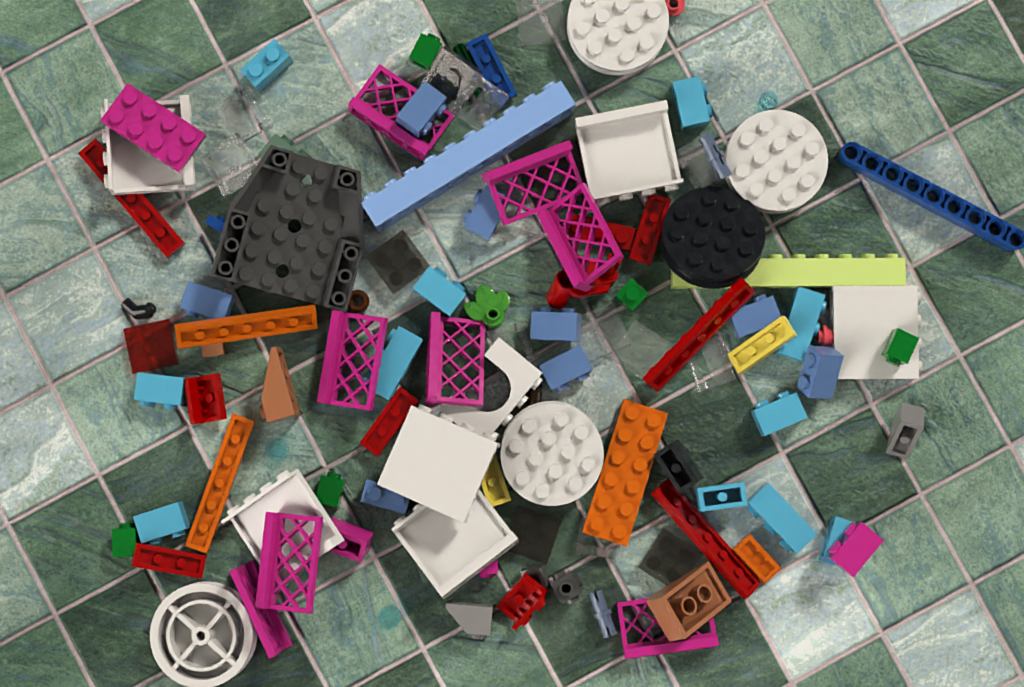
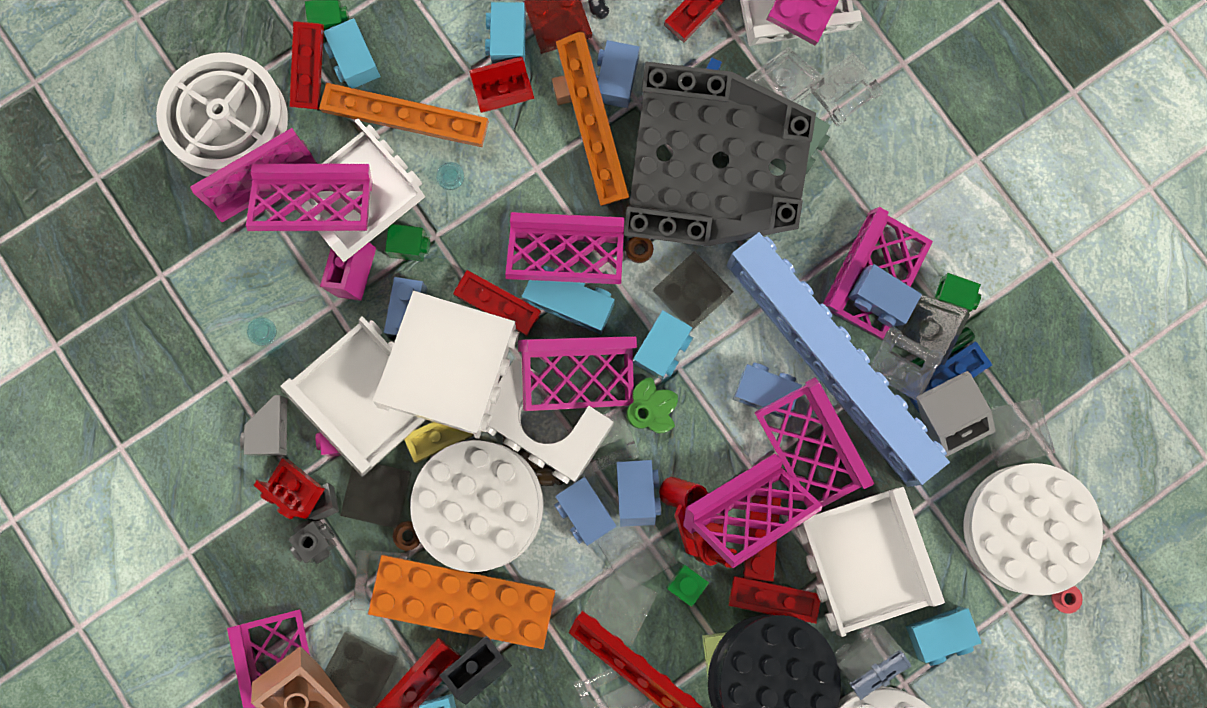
camera: 85 degrees right, 5 degrees down
(266, 65) = (910, 107): medium azure brick -> none
(278, 393) = (520, 165): nougat slope -> none
(522, 68) = (956, 413): none -> light grey slope
(574, 509) = (405, 544): none -> reddish brown plate
(602, 613) = (285, 592): sand blue pin -> none

